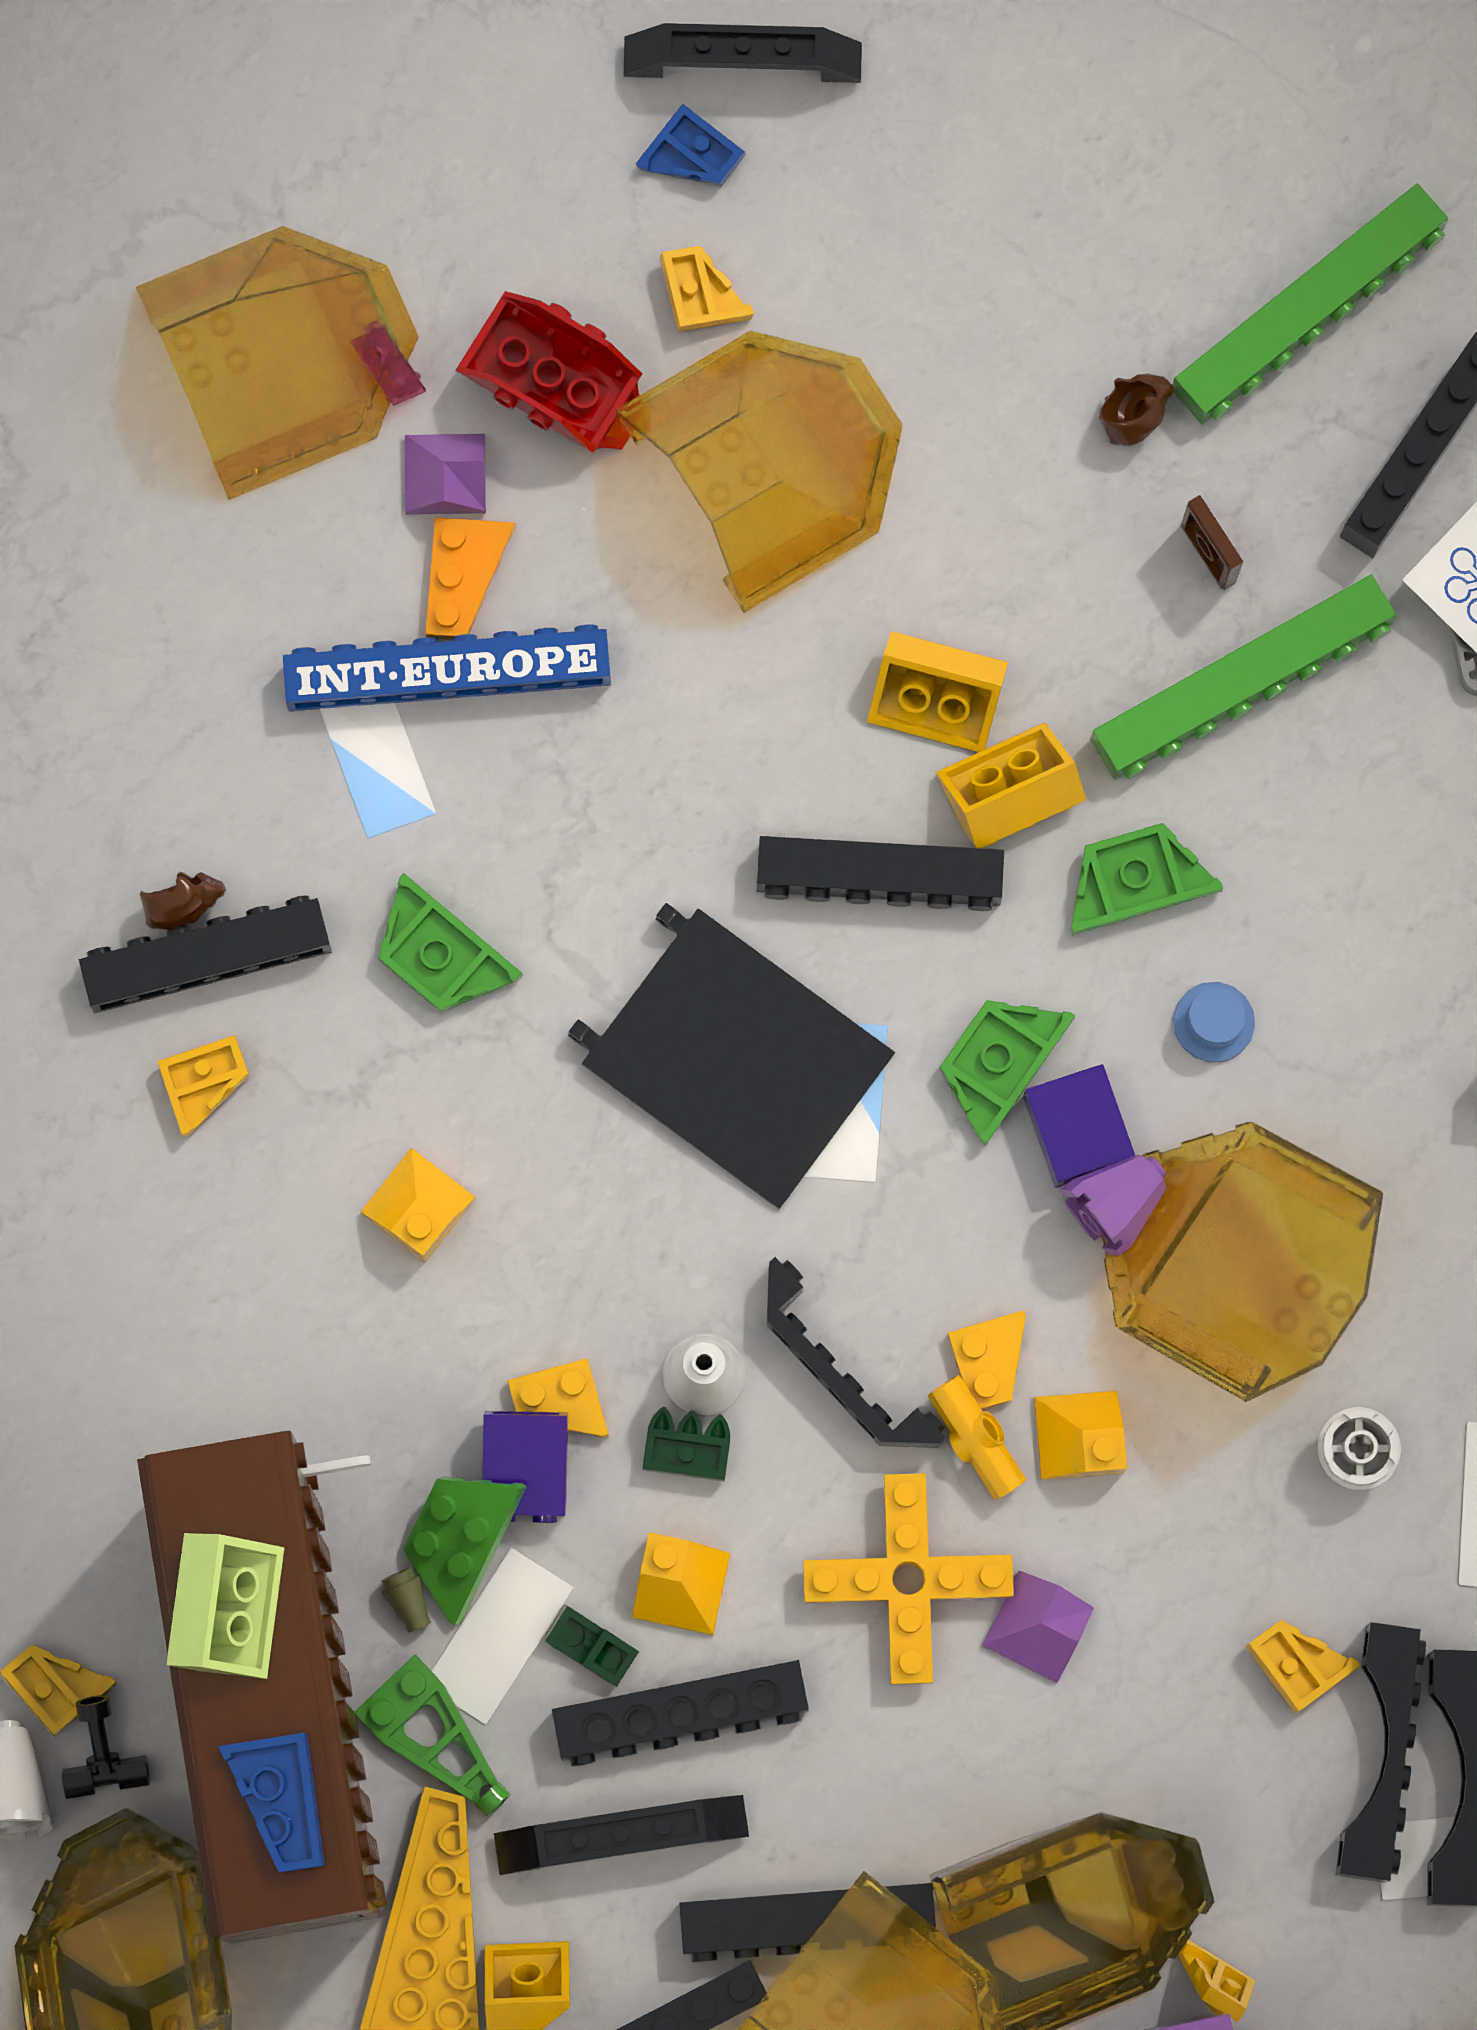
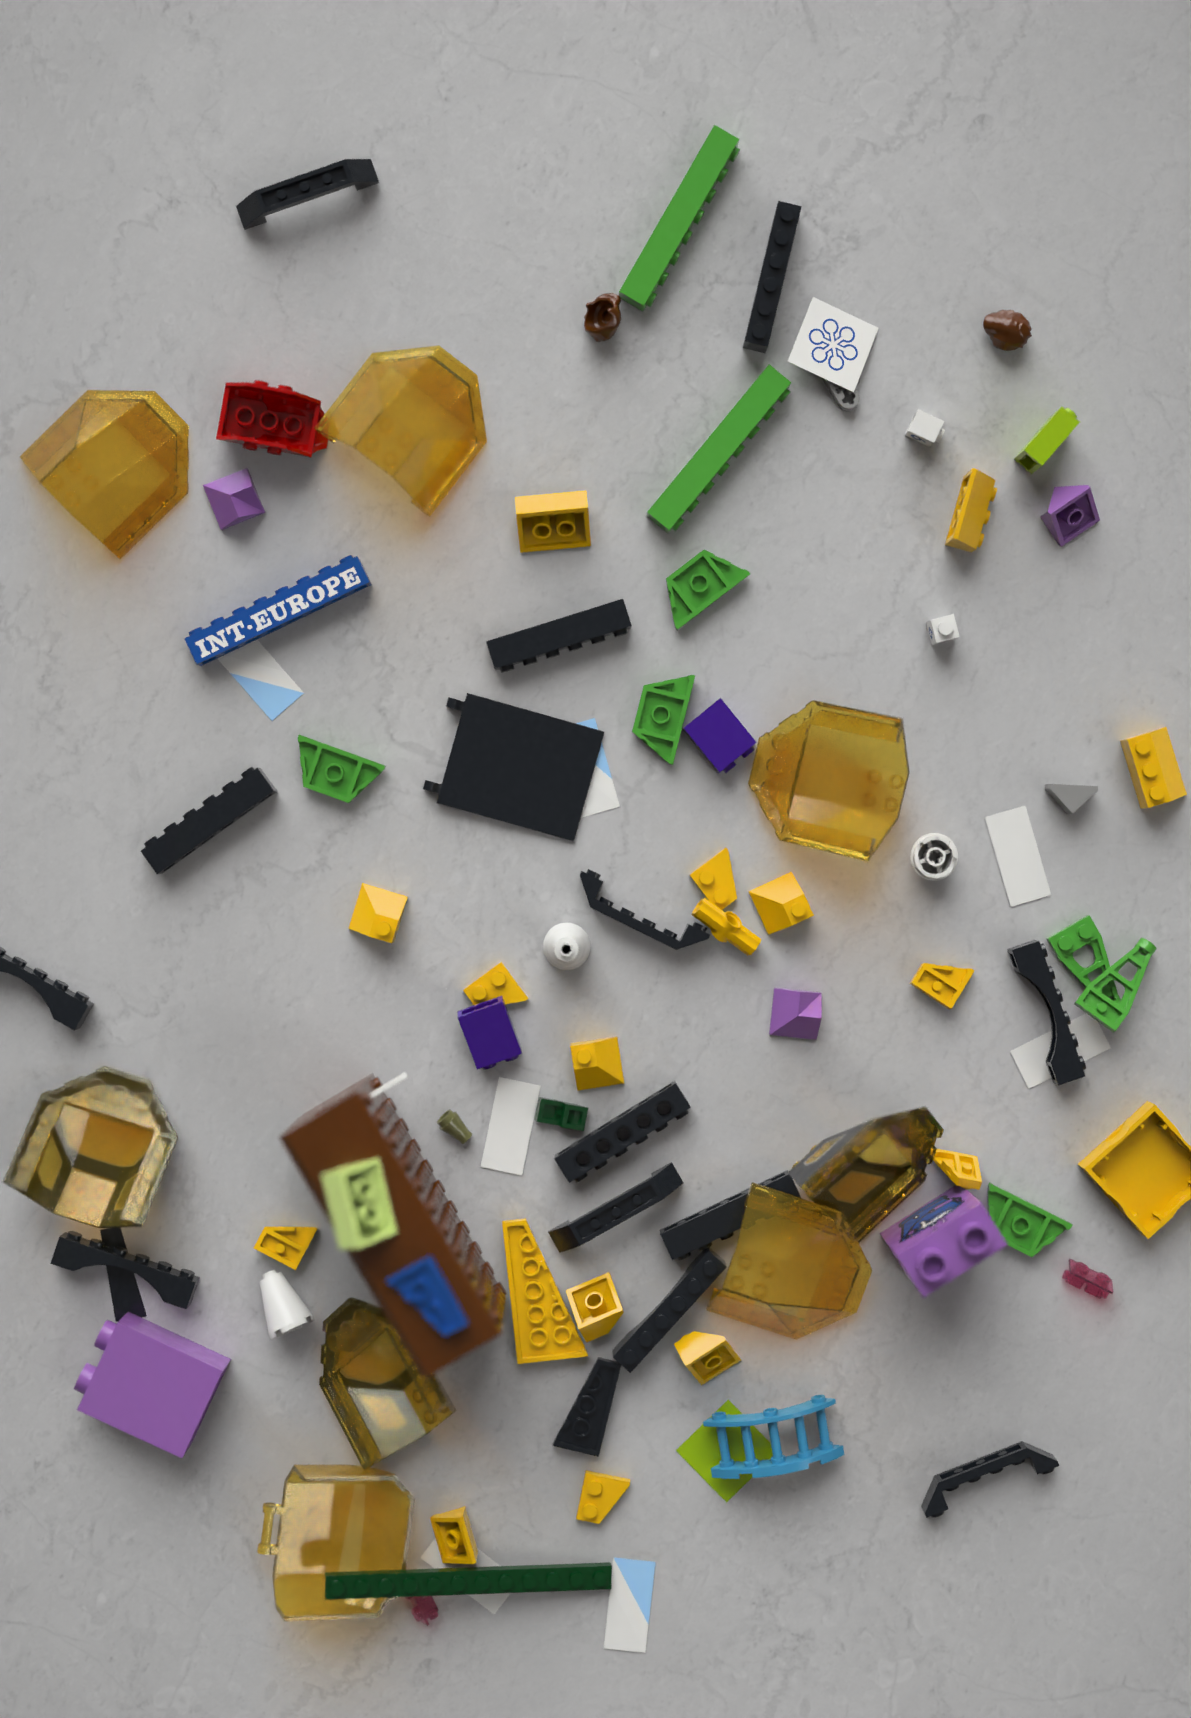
camera: 15 degrees left, 10 degrees up
(103, 1766) = (328, 1274): black bar -> none
(183, 902) = (184, 796): reddish brown hair -> none
(202, 1080) = (234, 889): yellow wing -> none
(387, 363) = (177, 450): clear pink hinge -> none
(399, 1700) = (470, 1182): bright green plate -> none
(459, 1538) = (469, 1085): bright green wing -> none
(461, 570) = (264, 550): light orange wing -> none
(687, 1450) = (573, 991): dark green plate -> none
(691, 150) = (299, 259): blue wing -> none
(699, 291) = (335, 340): yellow wing -> none
(908, 1545) = (724, 1034): yellow piece -> none
(1012, 785) = (613, 559): yellow slope -> none
(1116, 1200) = (755, 770): medium lavender cone -> none
(1211, 543) = (674, 379): reddish brown tile -> none
(1214, 1022) = (771, 649): medium blue piece -> none
(1390, 1665) = (1011, 1061): black arch -> none

